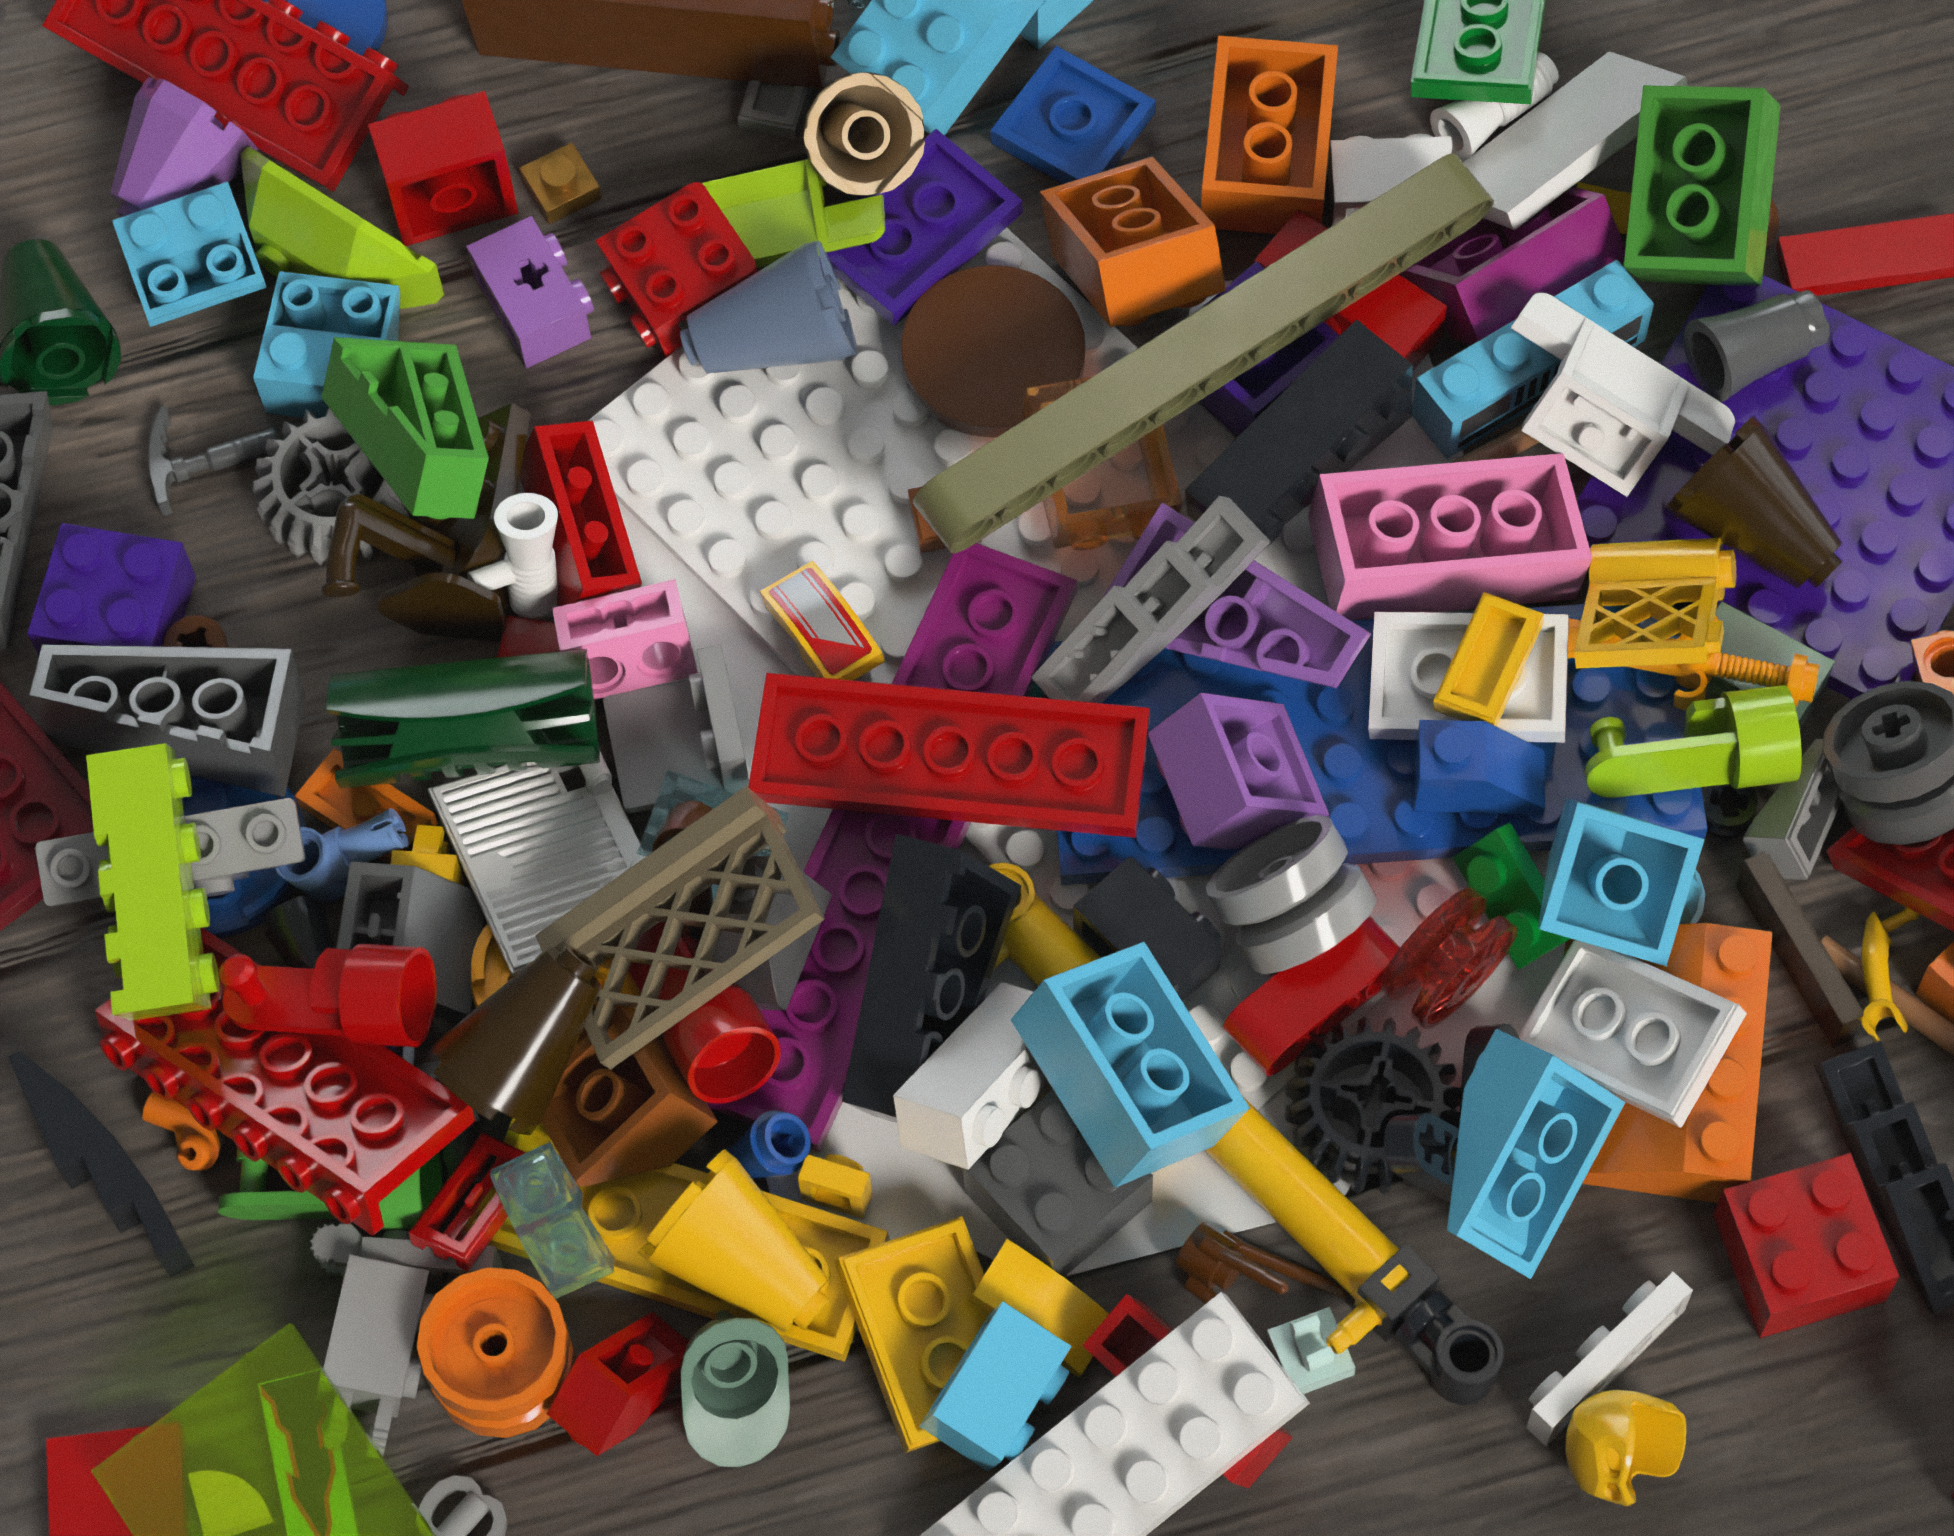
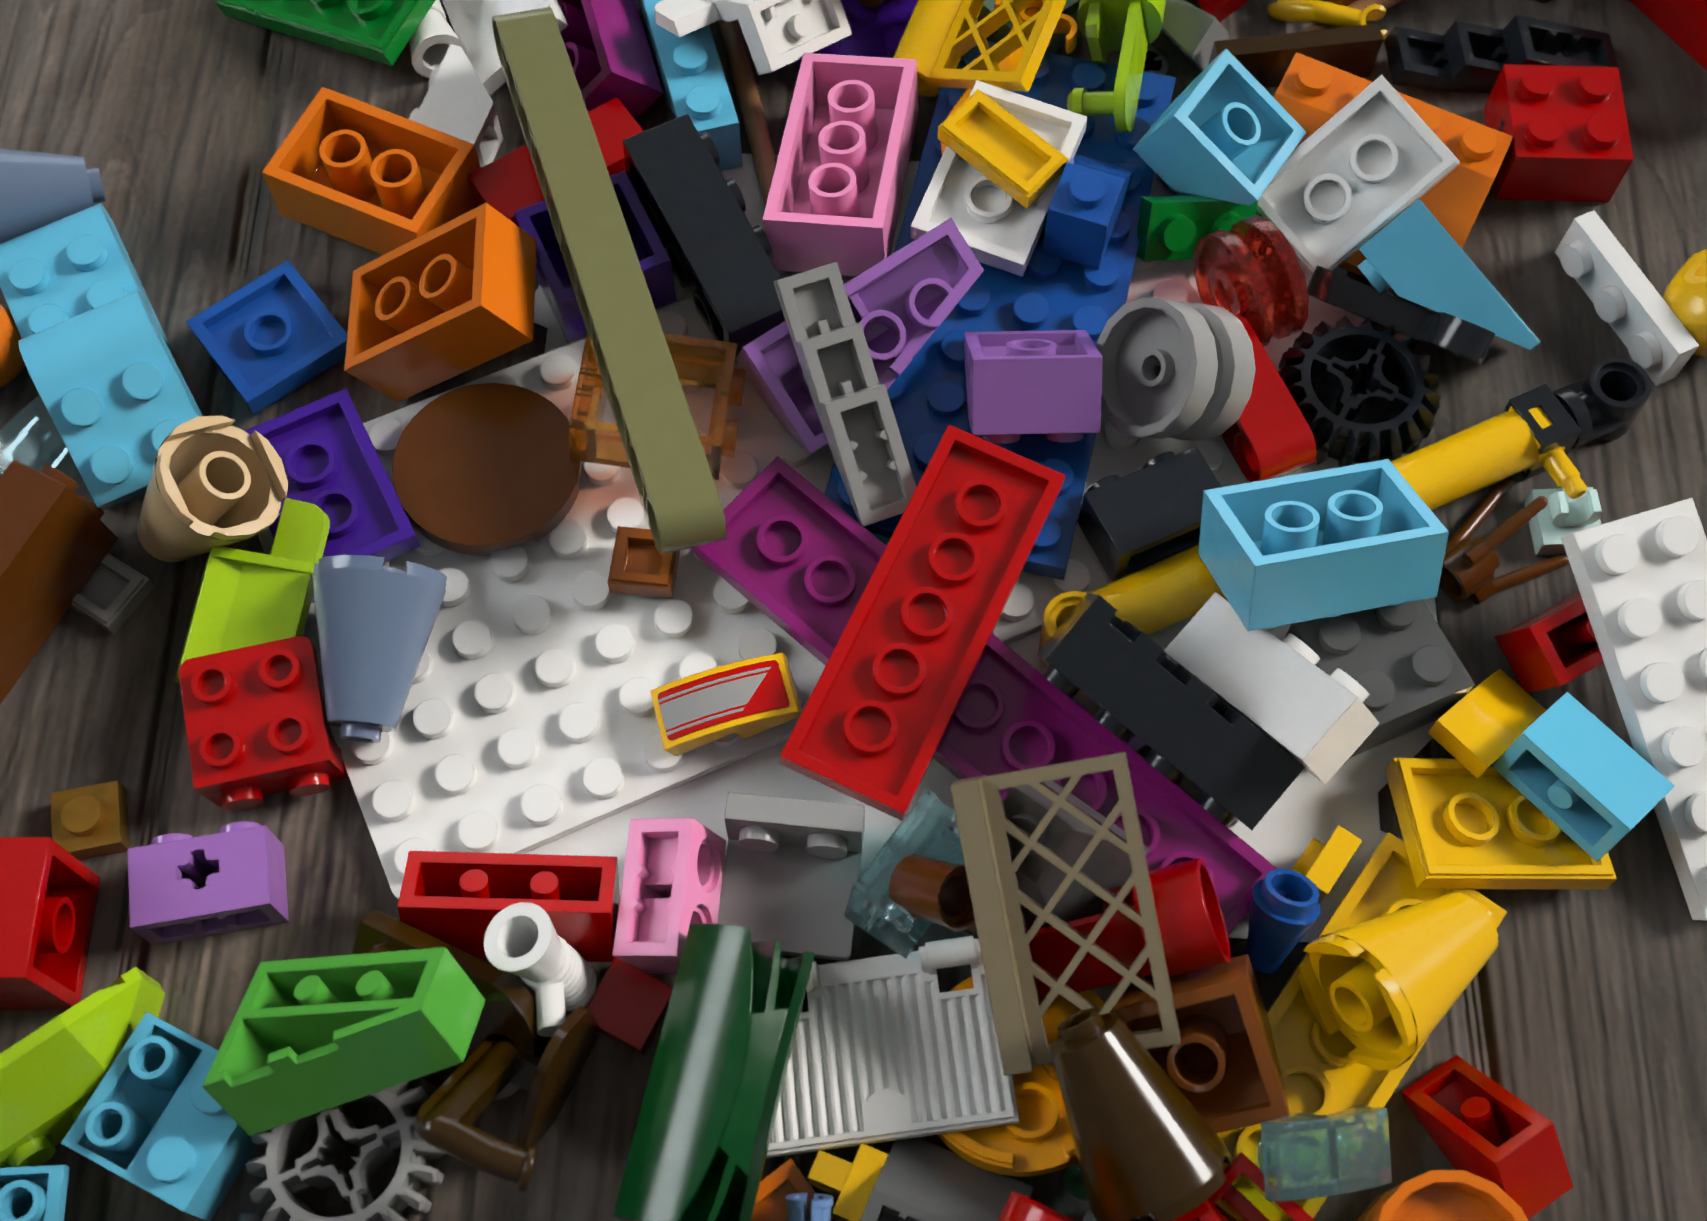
camera: 75 degrees left, 0 degrees up
(735, 1390) = (1517, 1026): sand green piece -> none

